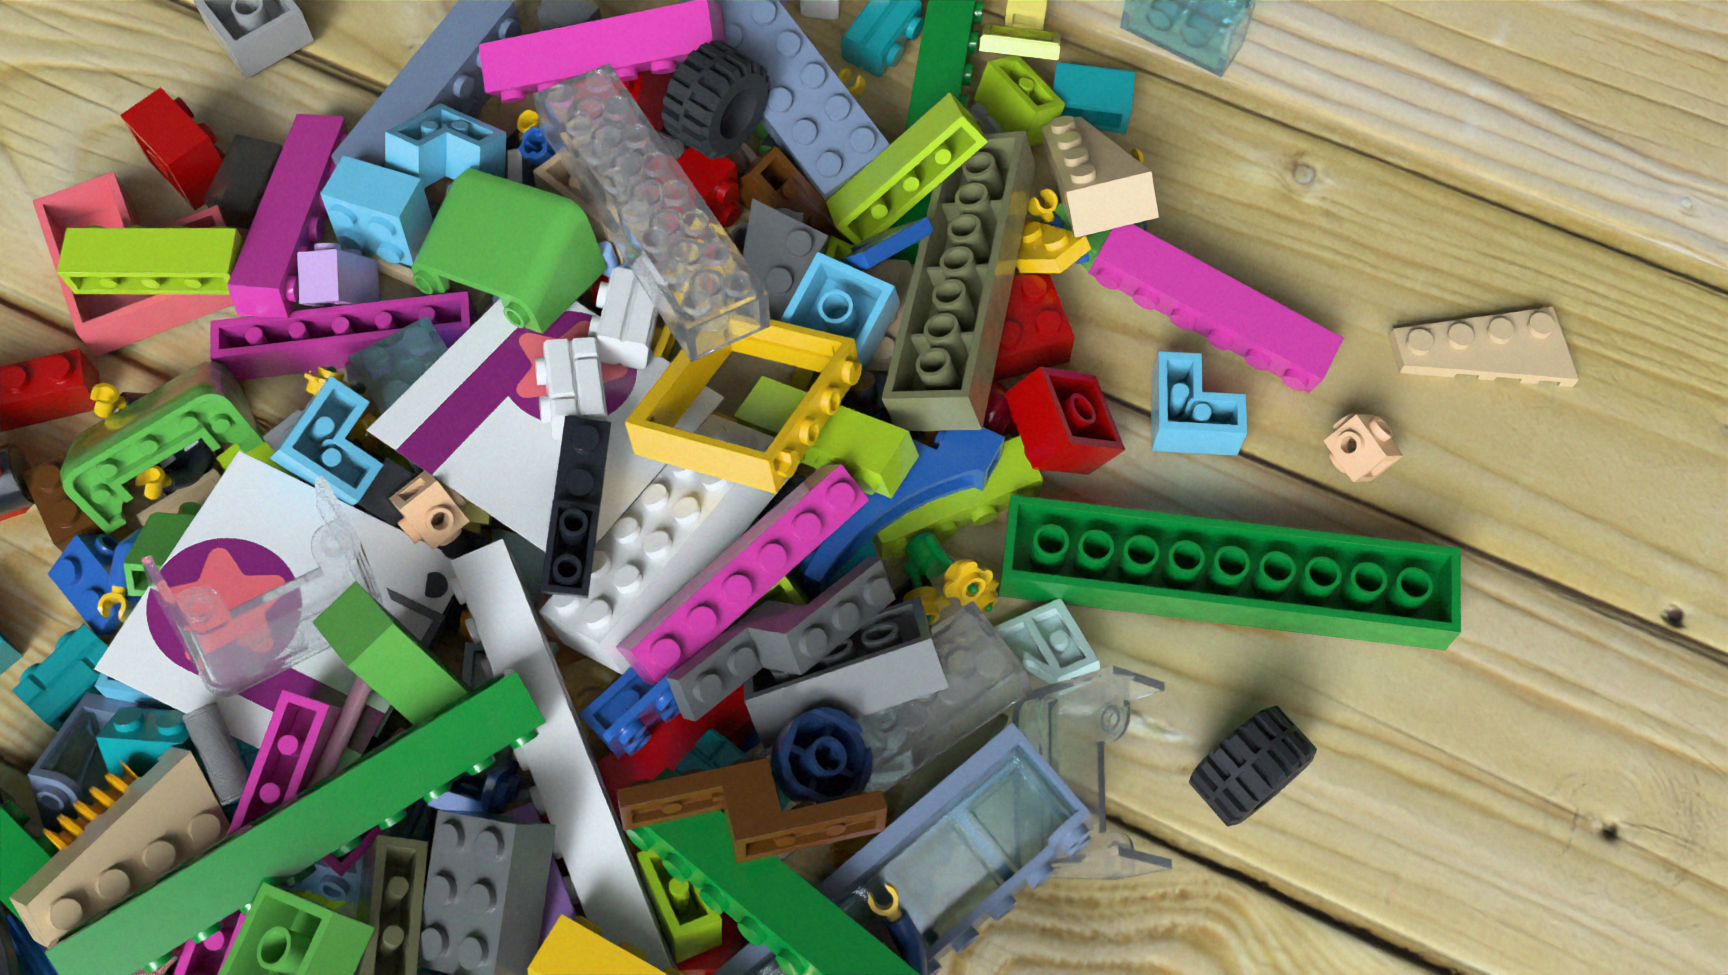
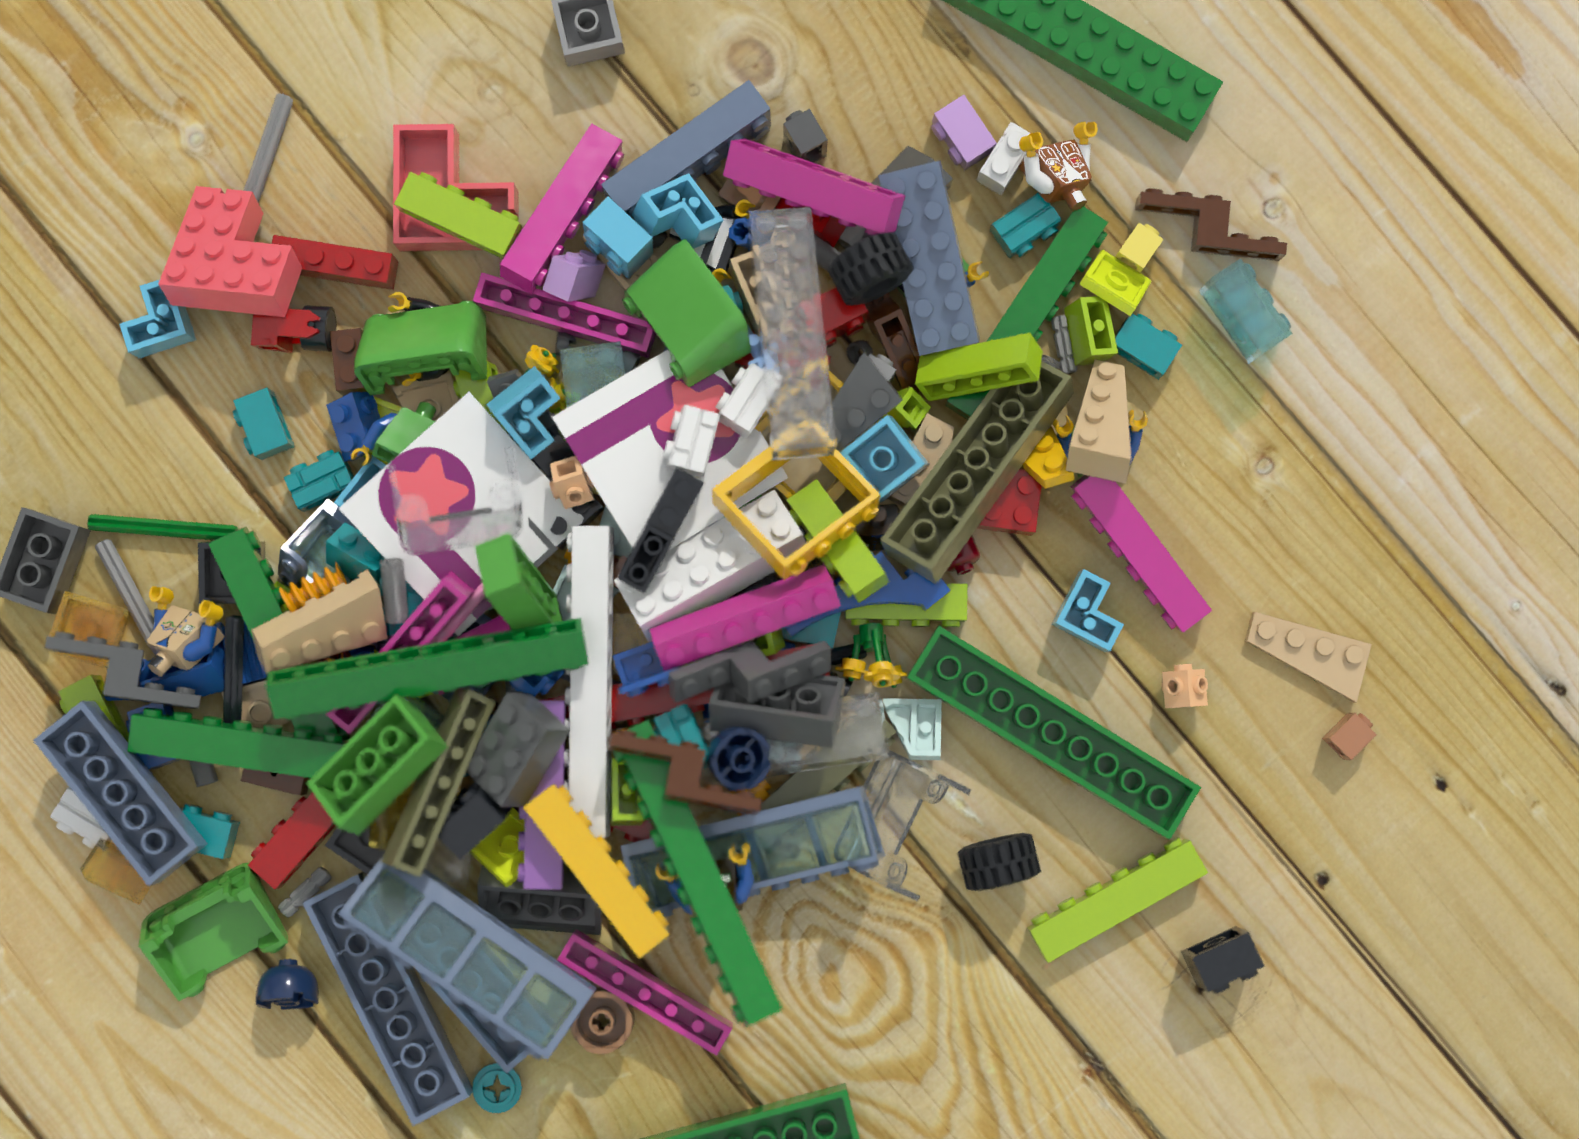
camera: 25 degrees right, 20 degrees up
(175, 144) = (501, 116): red brick -> none
(243, 179) = (540, 160): clear smoke brick -> none
(887, 244) = (938, 420): blue tile -> none
(1064, 421) = (999, 587): red brick -> none
(1432, 758) = (1117, 899): none -> lime brick
(1597, 420) = (1350, 735): none -> nougat brick
(1623, 764) = (1223, 960): none -> black brick

